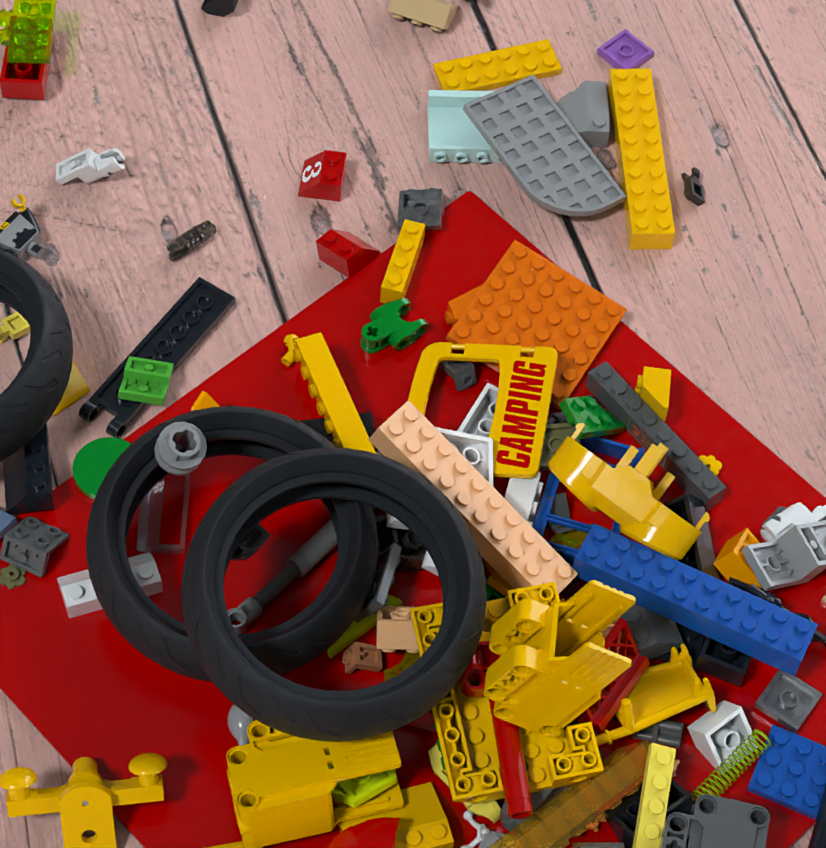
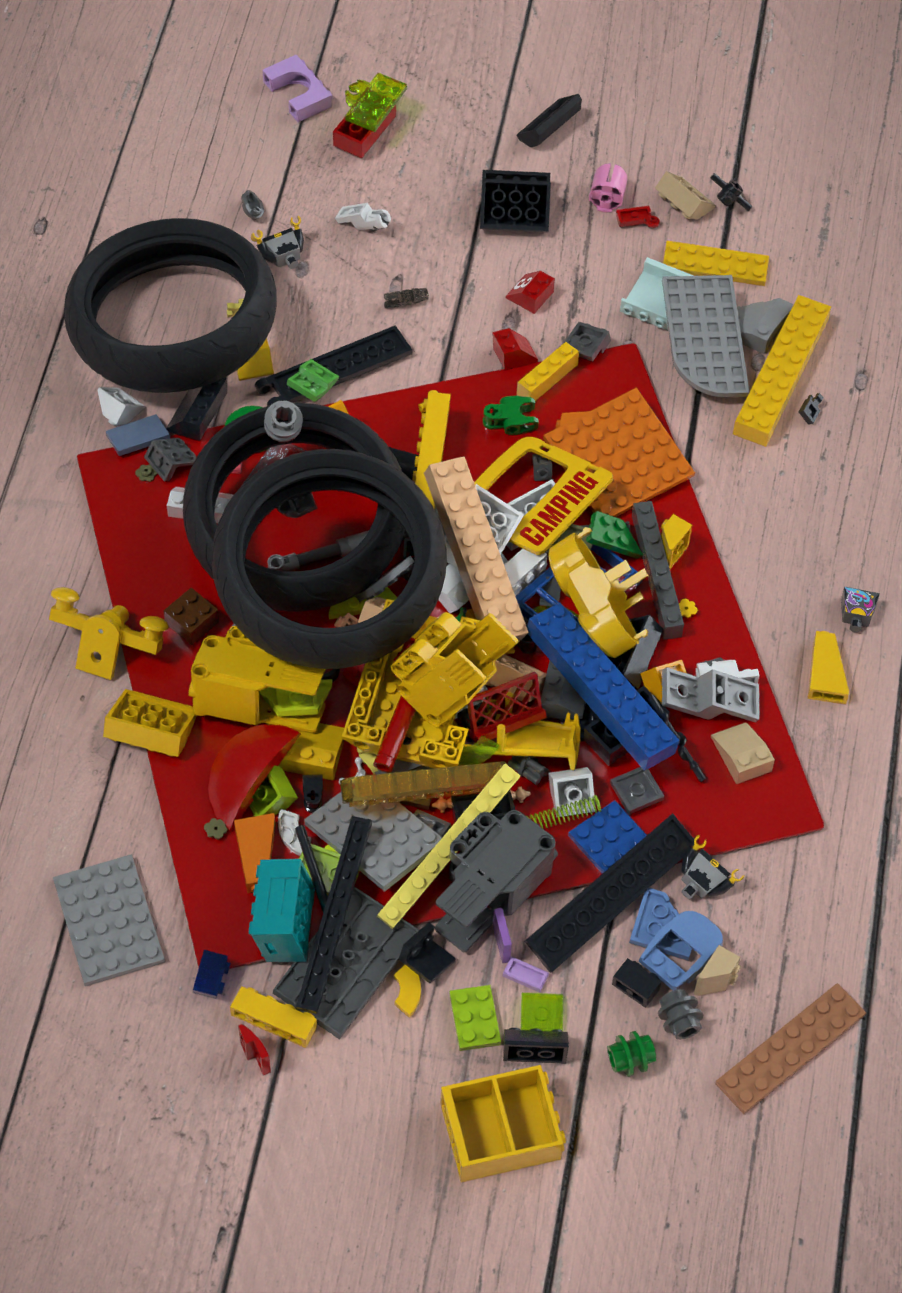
camera: 30 degrees right, 0 degrees up
(173, 730) = (191, 616): none -> reddish brown brick
(247, 82) = (515, 201): none -> black slope
(339, 27) = (602, 187): none -> bright pink cylinder
(385, 49) = (637, 216): none -> red hinge
(613, 739) = (478, 752): none -> clear neon green tile
(625, 51) = (826, 288): medium lavender tile -> none

